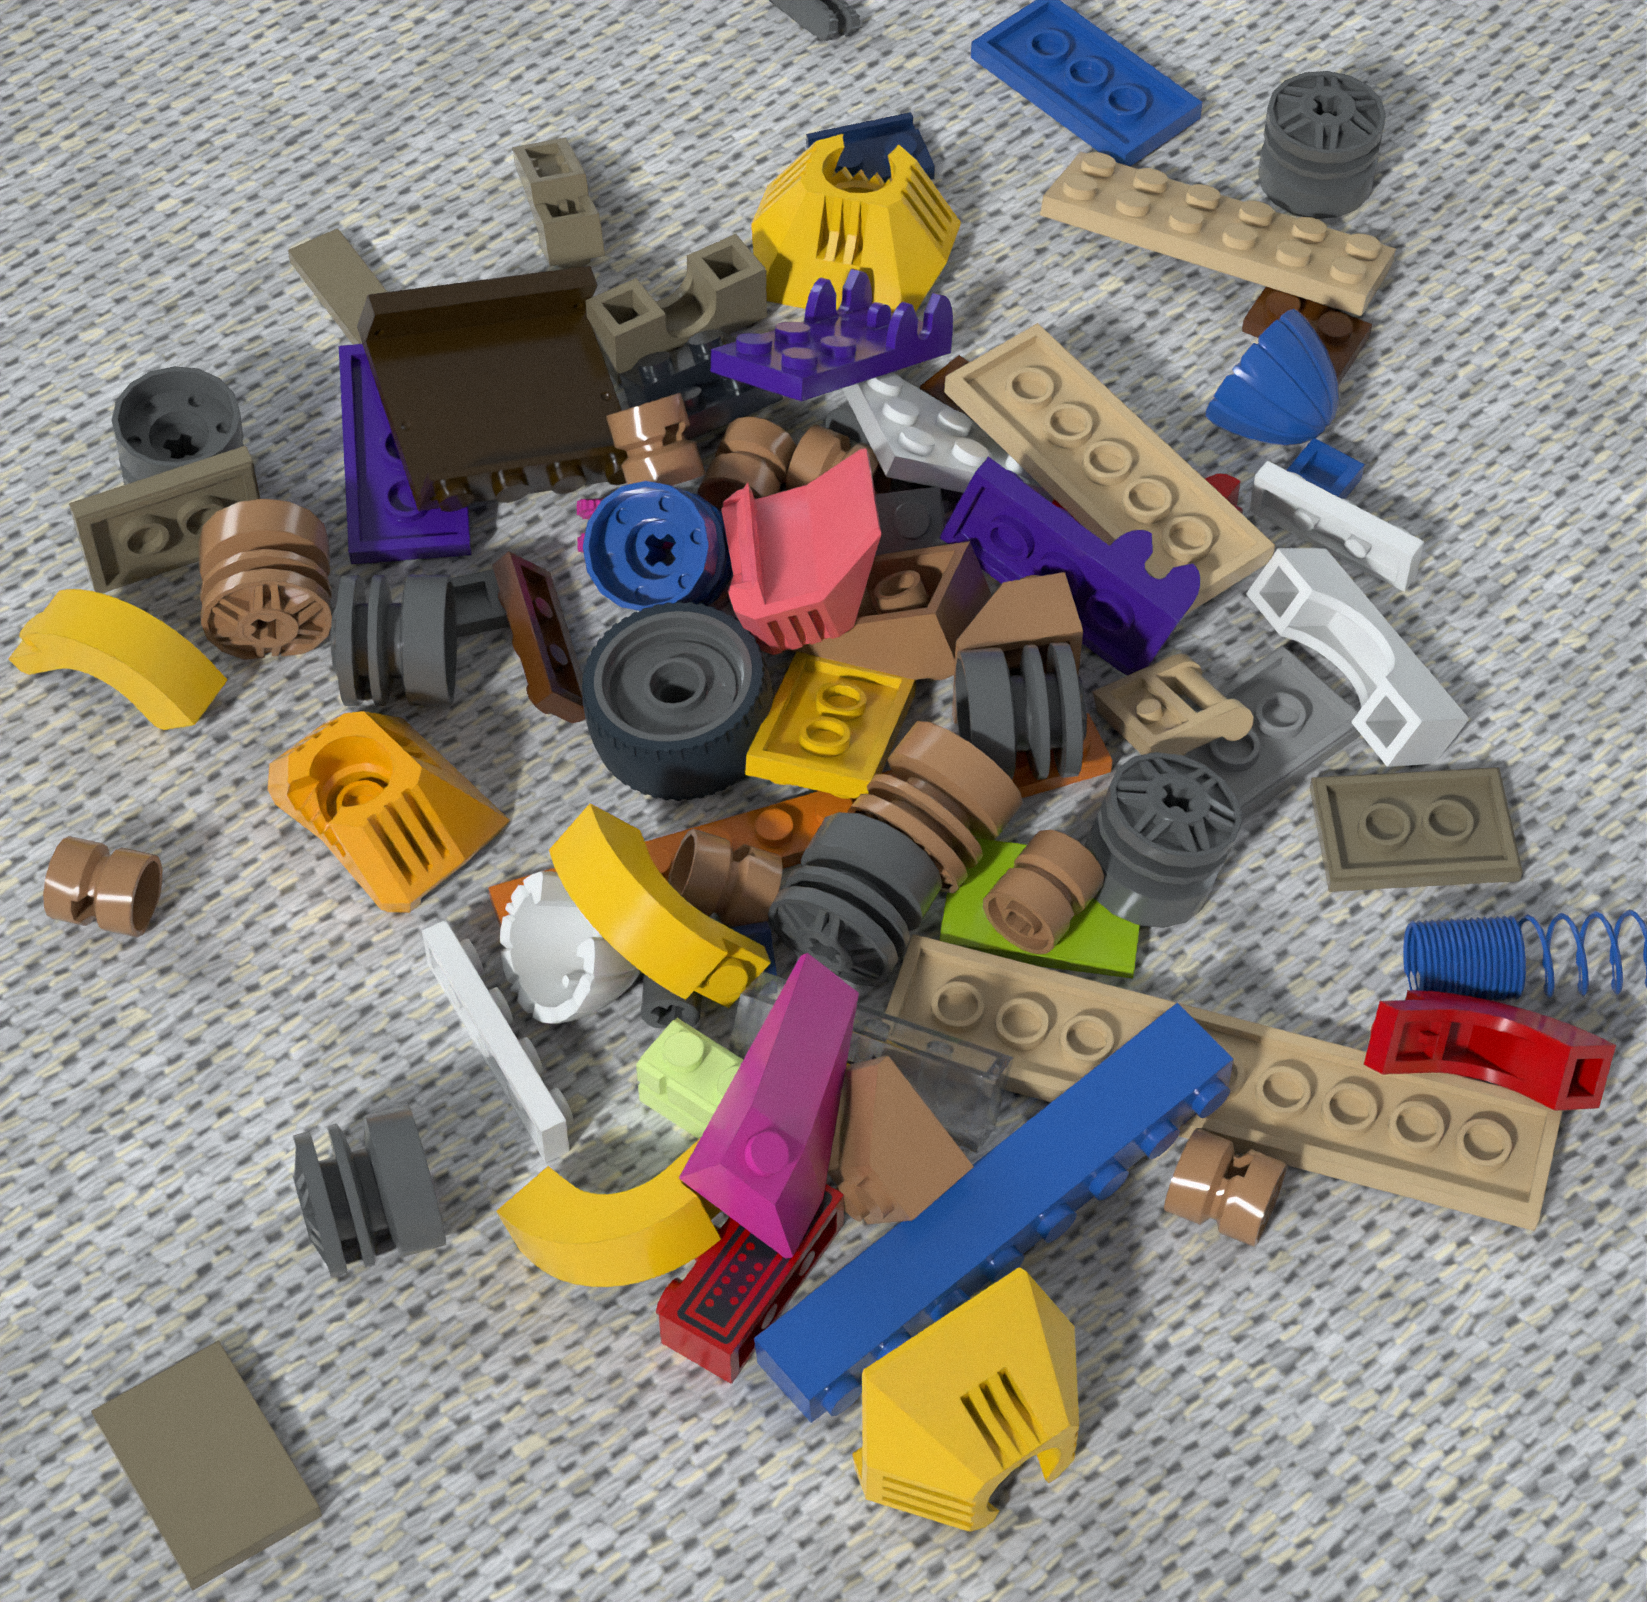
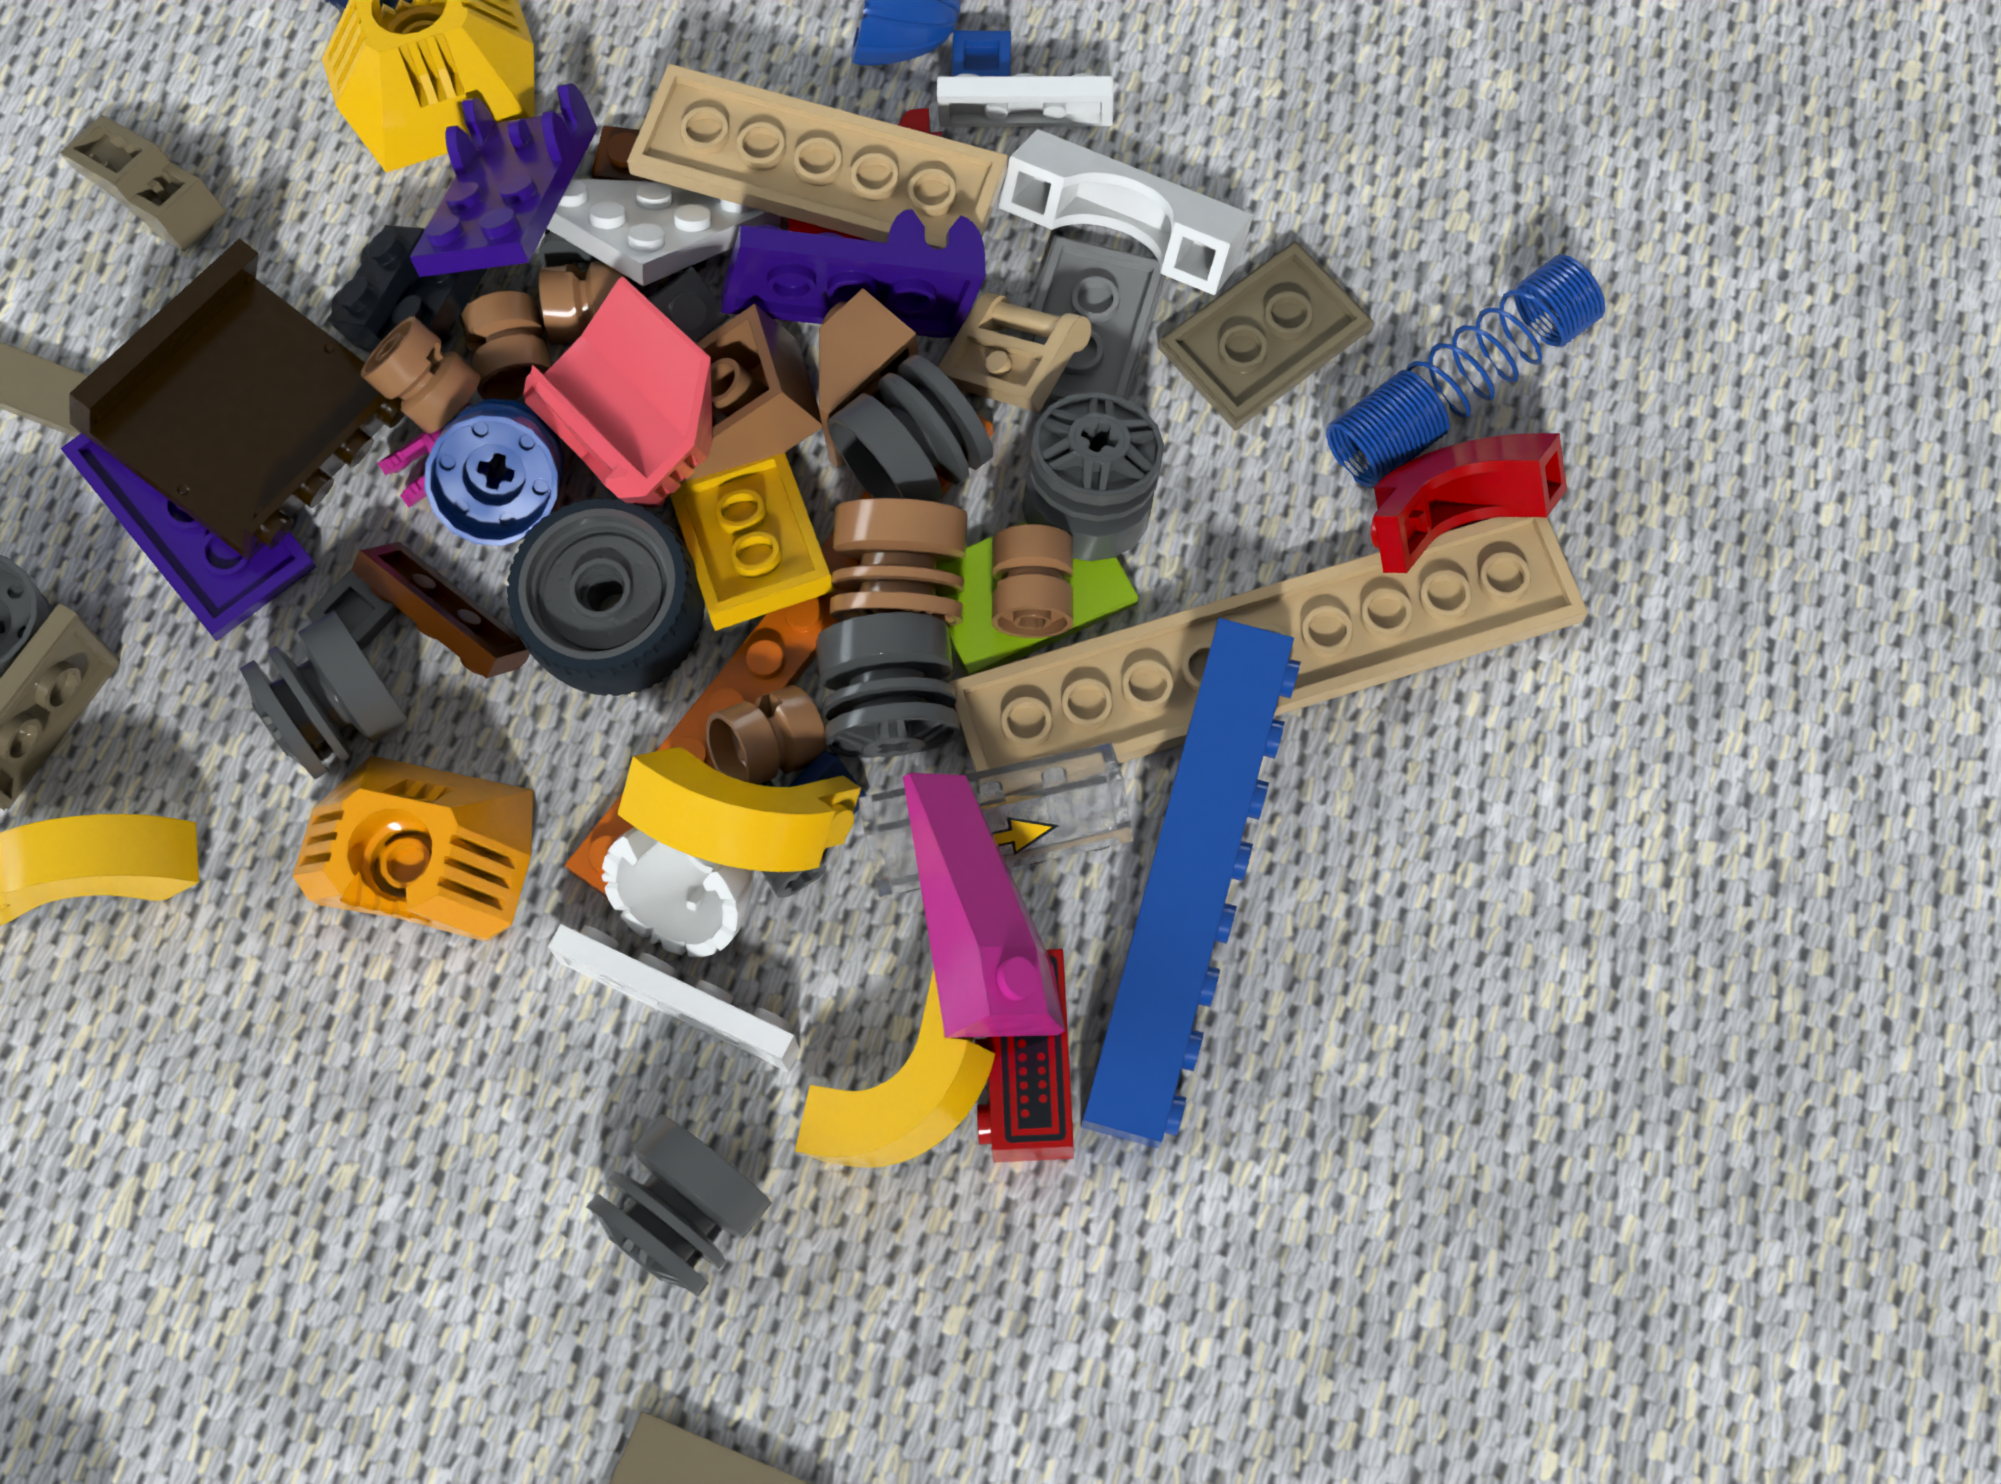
camera: 30 degrees left, 15 degrees up
(92, 885) = (224, 1086): medium nougat wheel -> none
(265, 579) = (162, 710): medium nougat wheel -> none
(685, 1076) = (873, 928): yellowish green brick -> none
(719, 292) = (356, 197): dark tan arch -> none
(889, 1147) = (1082, 891): medium nougat slope -> none
(971, 1405) = (1300, 1065): yellow helmet -> none
(1225, 1187) = (1343, 741): medium nougat wheel -> none

